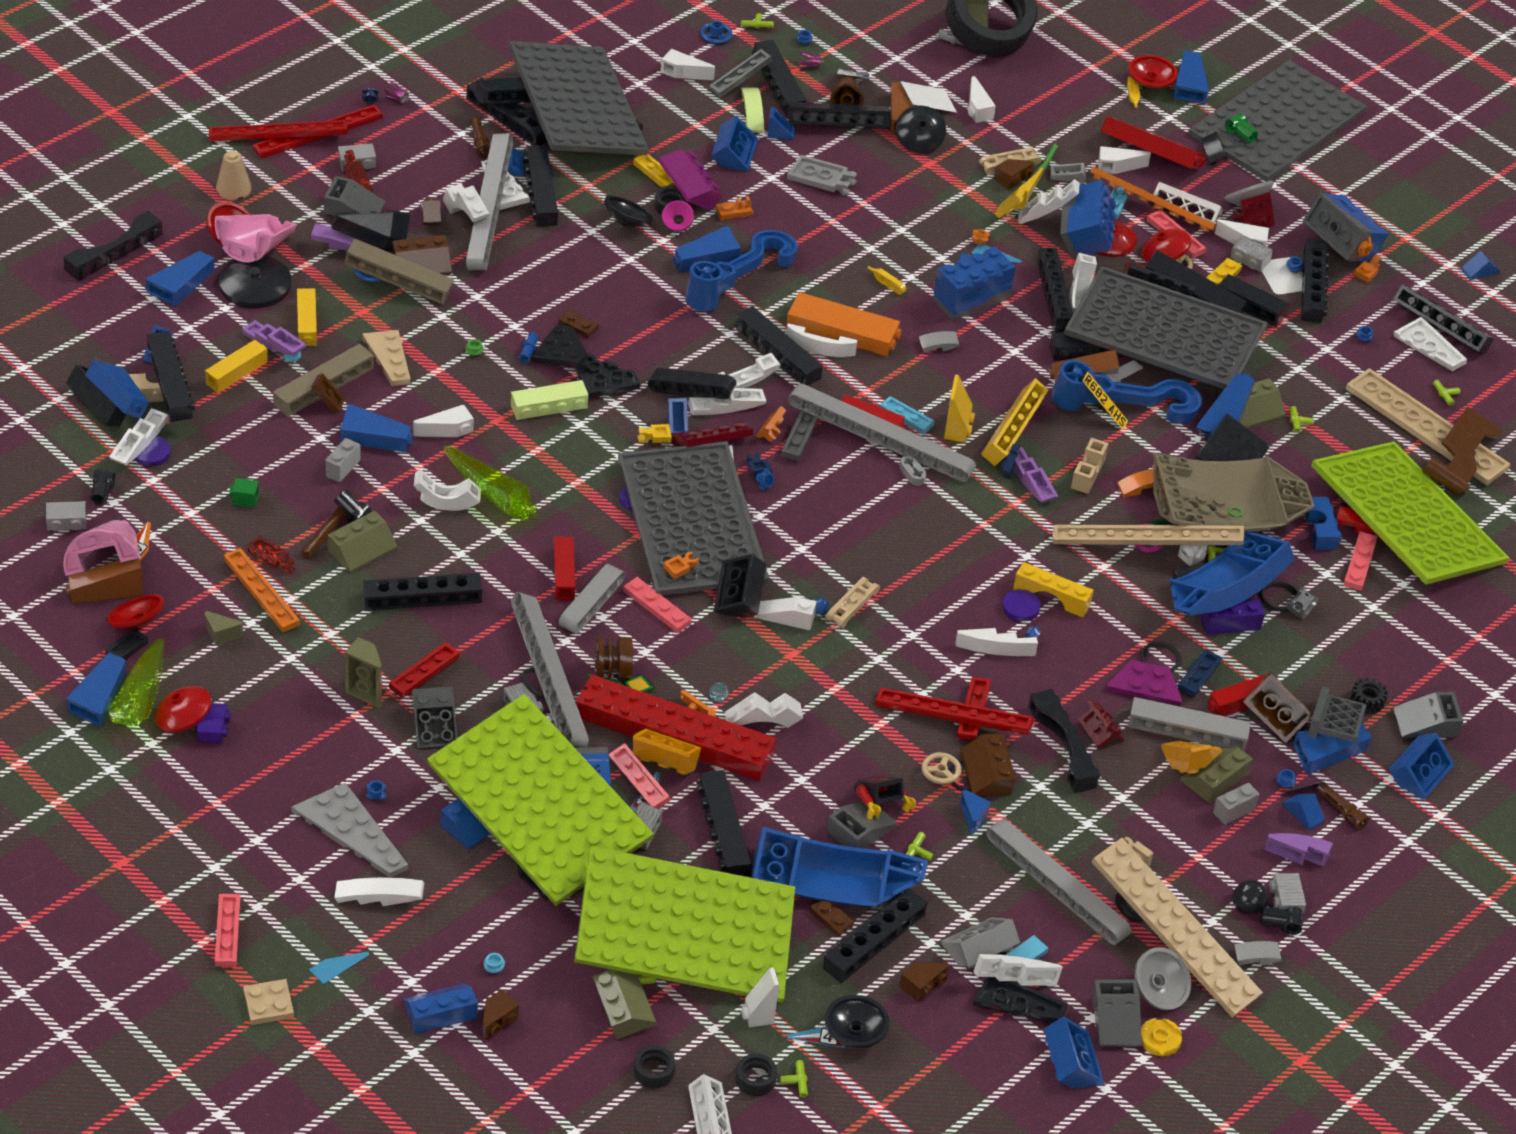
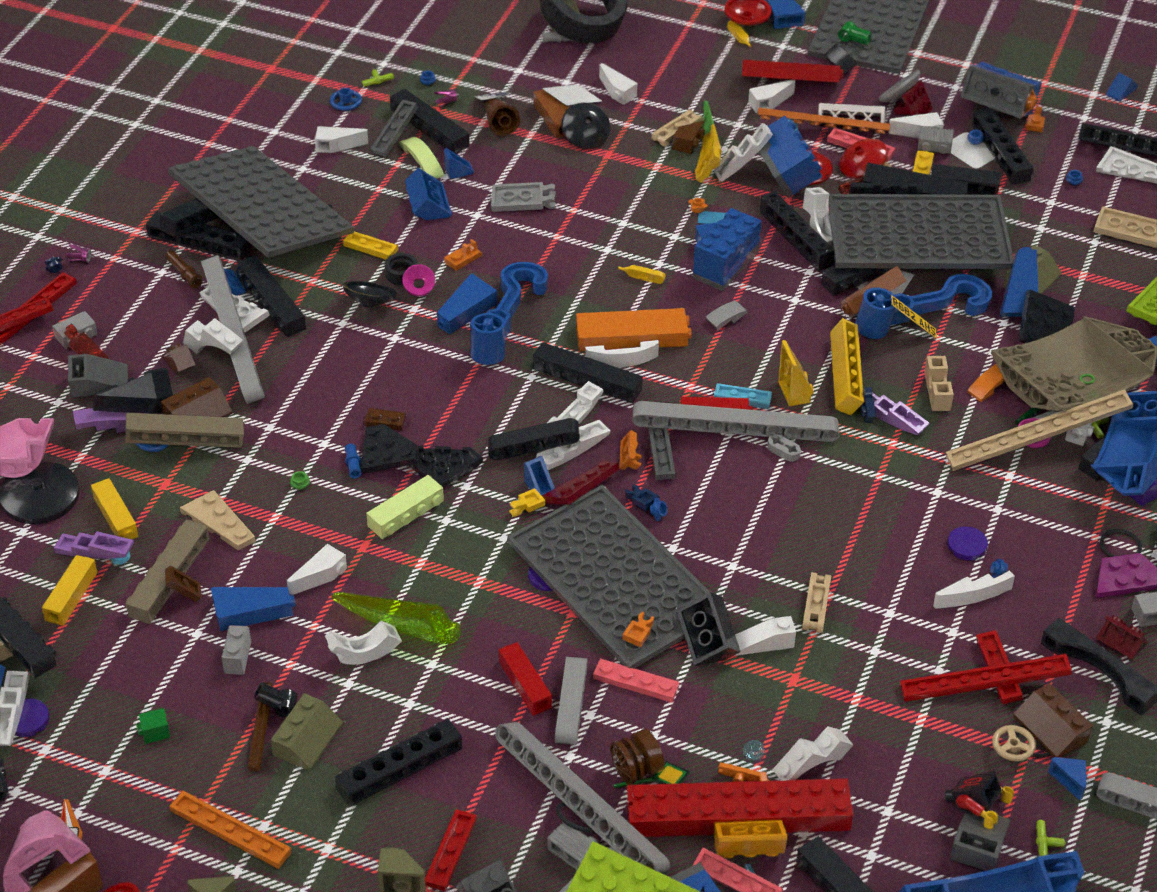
camera: 20 degrees left, 0 degrees up
(271, 553) = (218, 783): clear red plate -> none
(691, 178) = (410, 240): magenta slope -> none
(821, 606) = (795, 617): blue plate -> none
(839, 114) = (505, 136): black brick -> none
(1071, 172) = (737, 120): light grey slope -> none
(1074, 596) = (1011, 515): yellow arch -> none
(1297, 420) = (1076, 275): lime piece -> none

